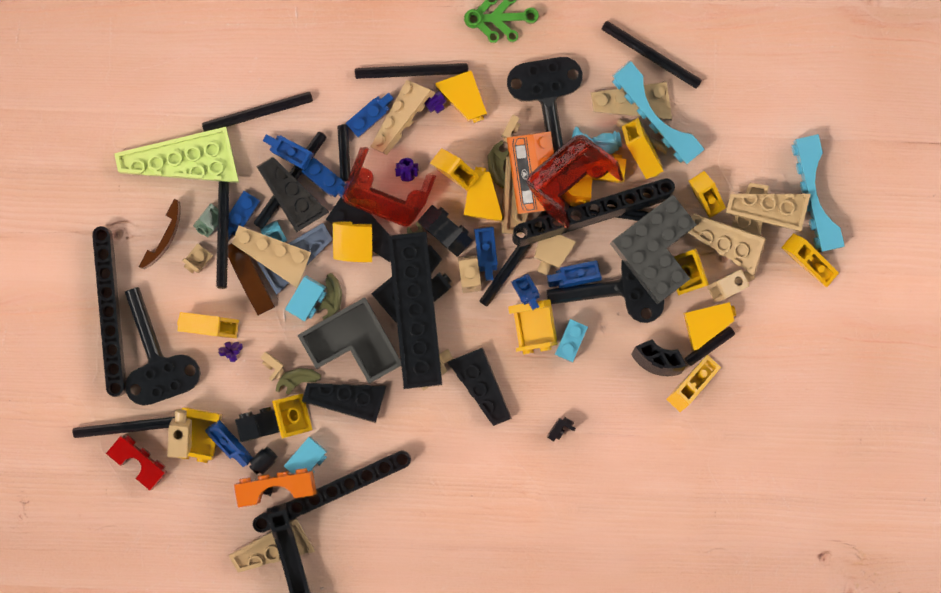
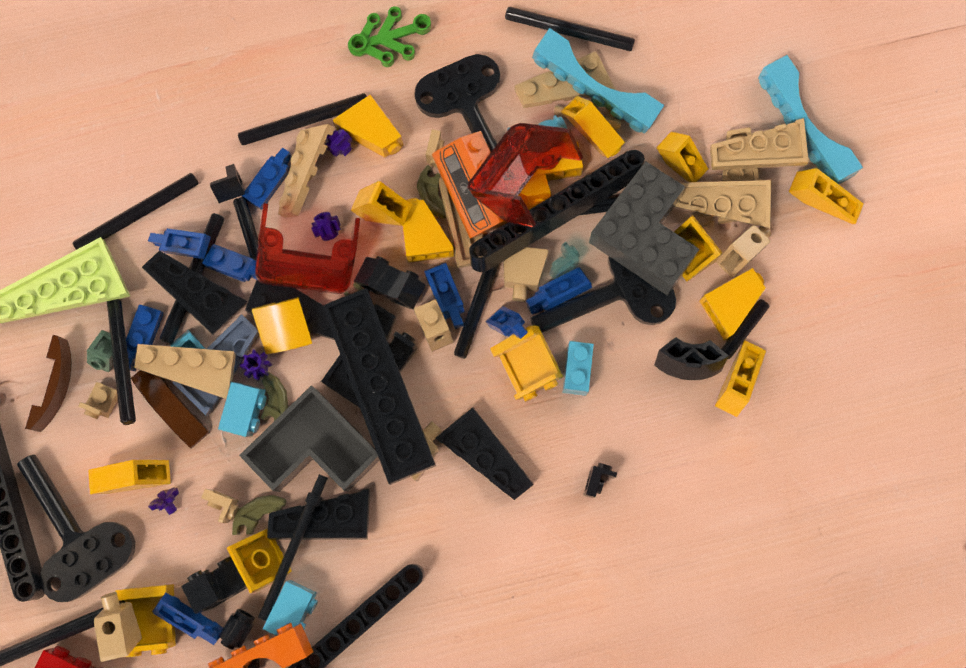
camera: 10 degrees left, 10 degrees down
(324, 260) = (260, 370): none -> dark purple gear
(338, 115) = (228, 187): none -> black panel
(343, 383) = (313, 499): none -> black bar
(583, 255) = (562, 266): none -> clear light blue bracket

